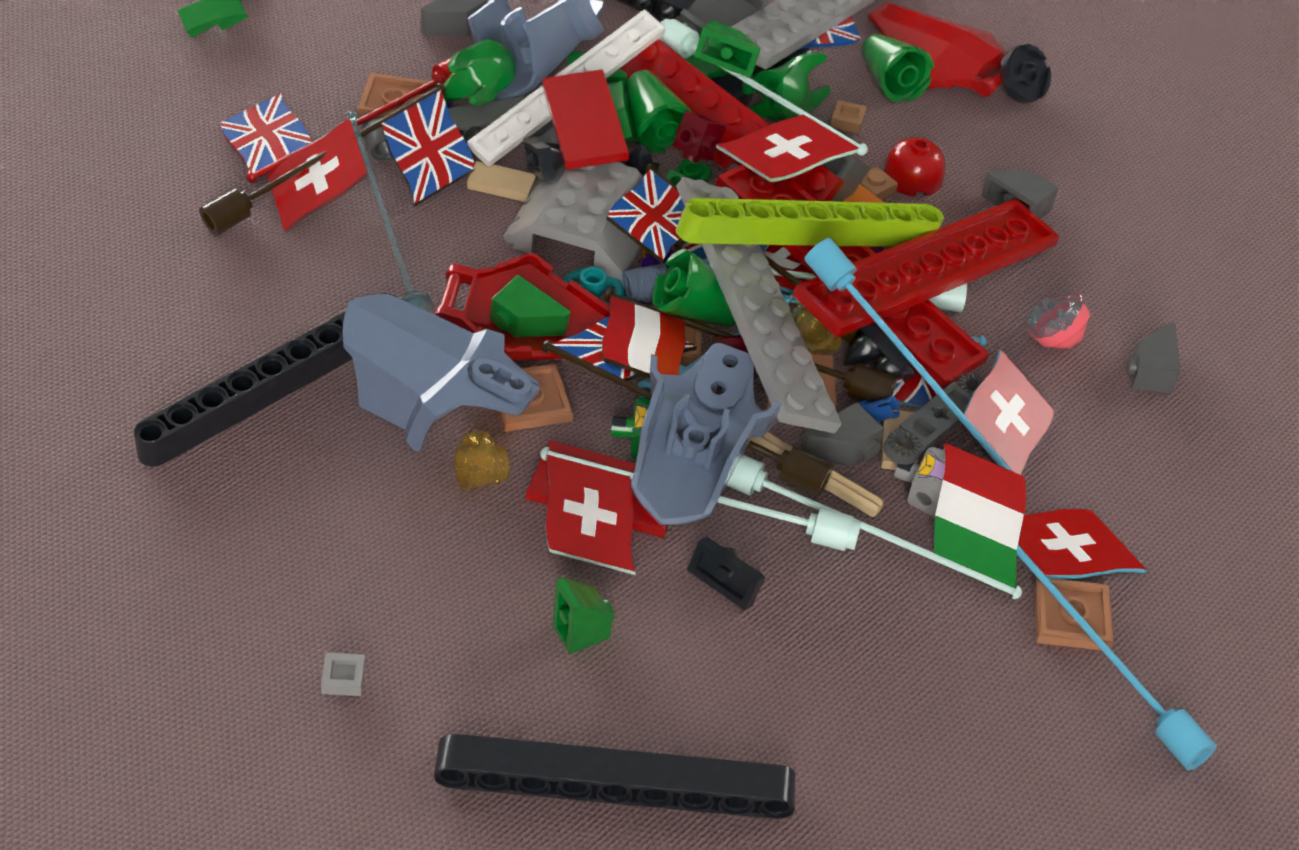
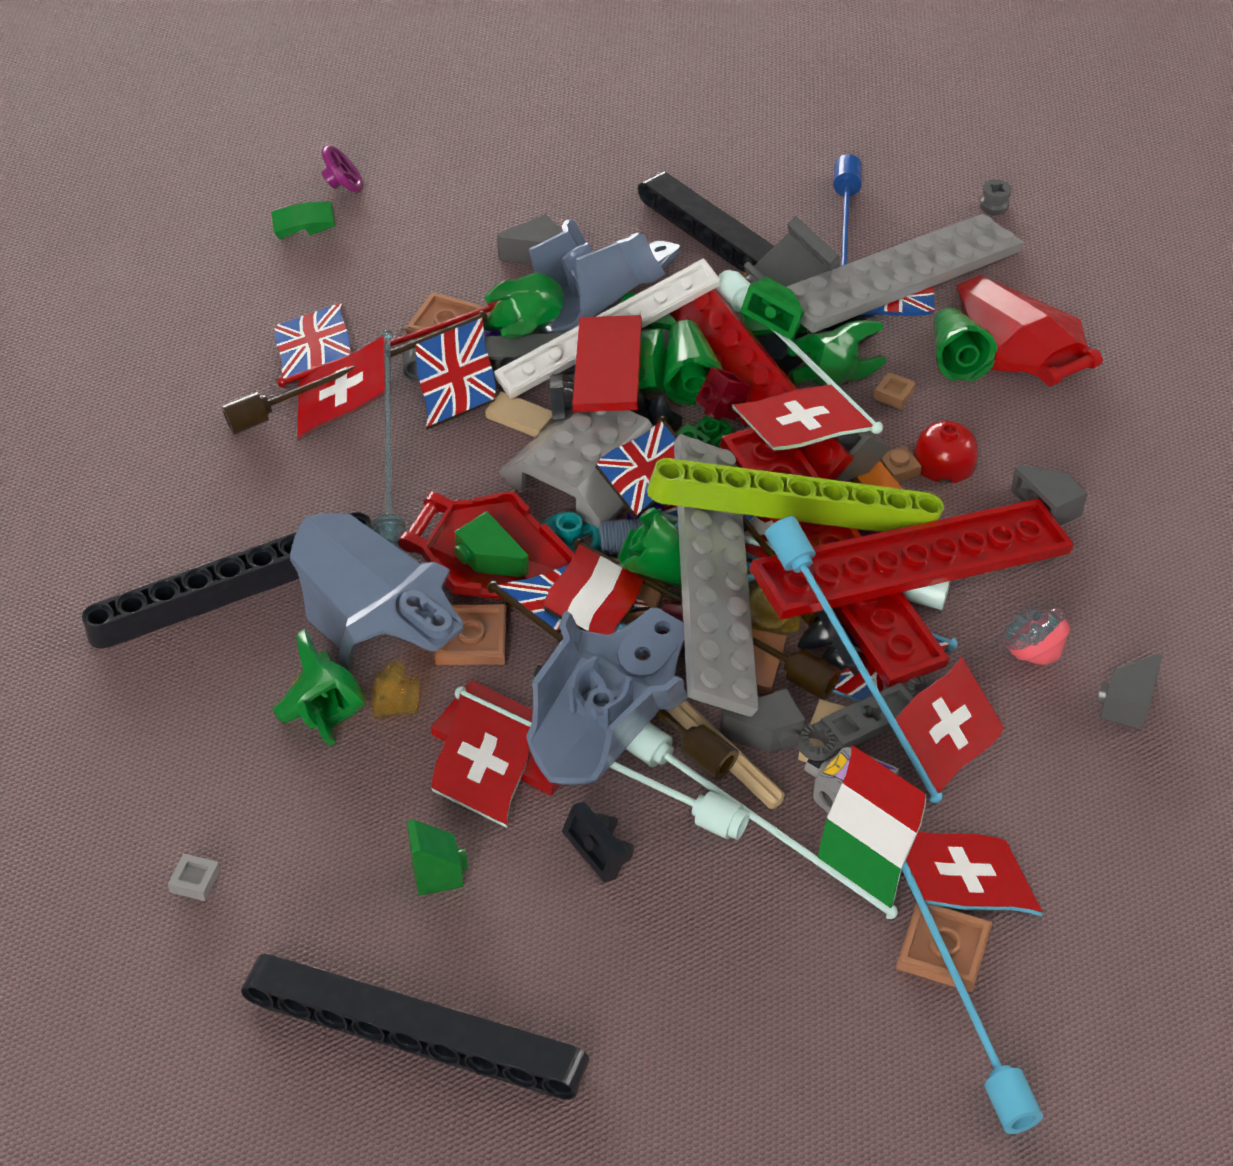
camera: 20 degrees right, 0 degrees up
(409, 472) = (321, 692): none -> green piece
(882, 409) = (811, 699): blue pin -> none
(1025, 73) = (1098, 367): black tile -> none

